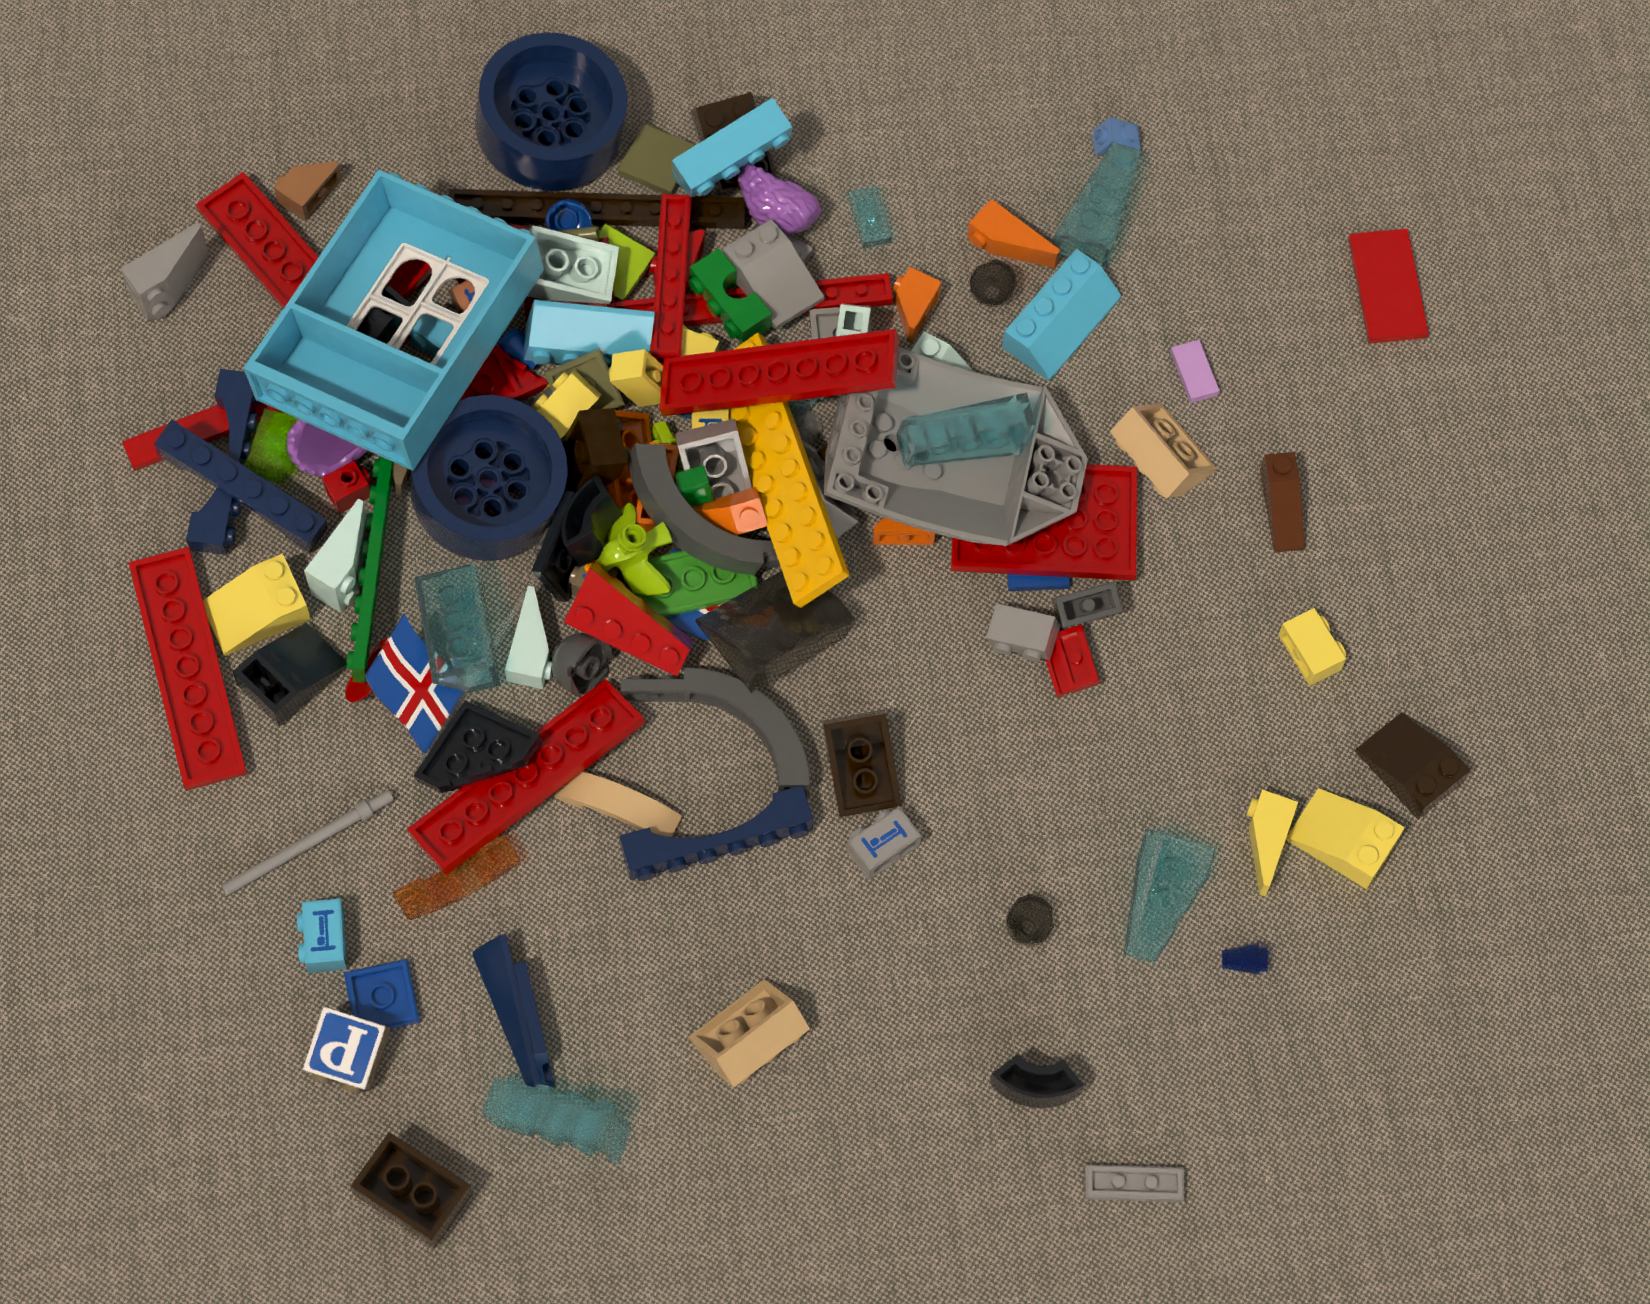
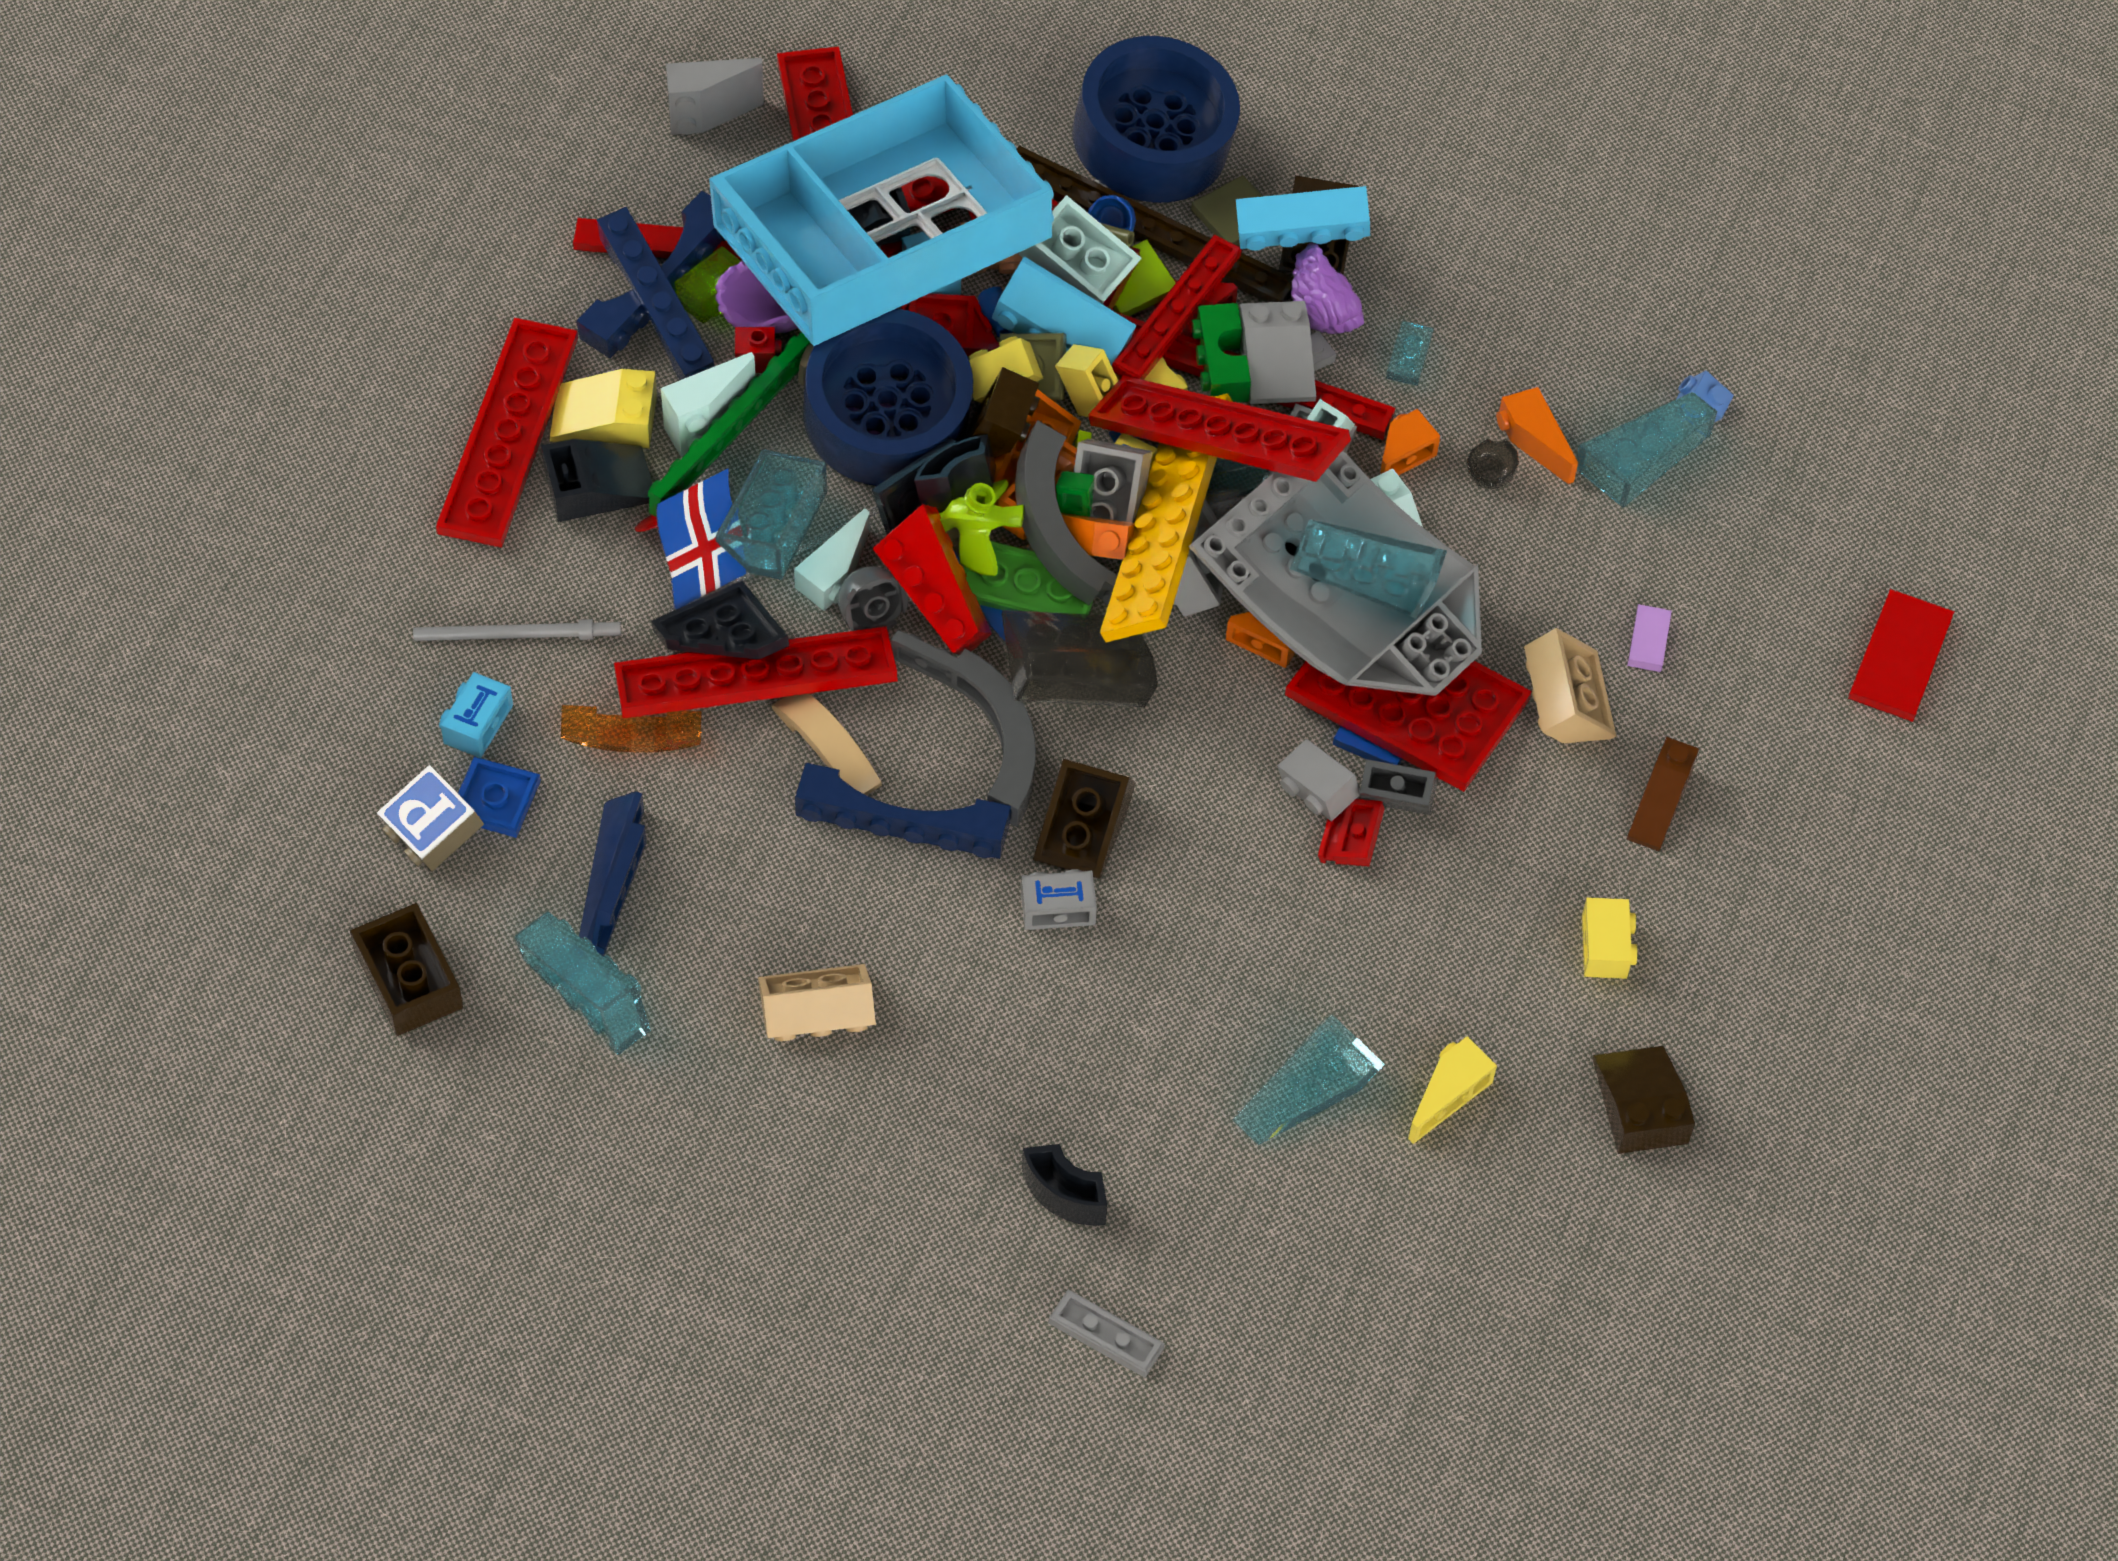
camera: 30 degrees right, 10 degrees down
(307, 187) = (886, 80): medium nougat slope -> none
(1029, 920) = (1156, 1038): clear smoke hair -> none
(1061, 315) = (1544, 523): medium azure slope -> none
(1246, 959) = (1355, 1187): clear blue cone -> none
(1345, 836) = (1531, 1129): light yellow slope -> none

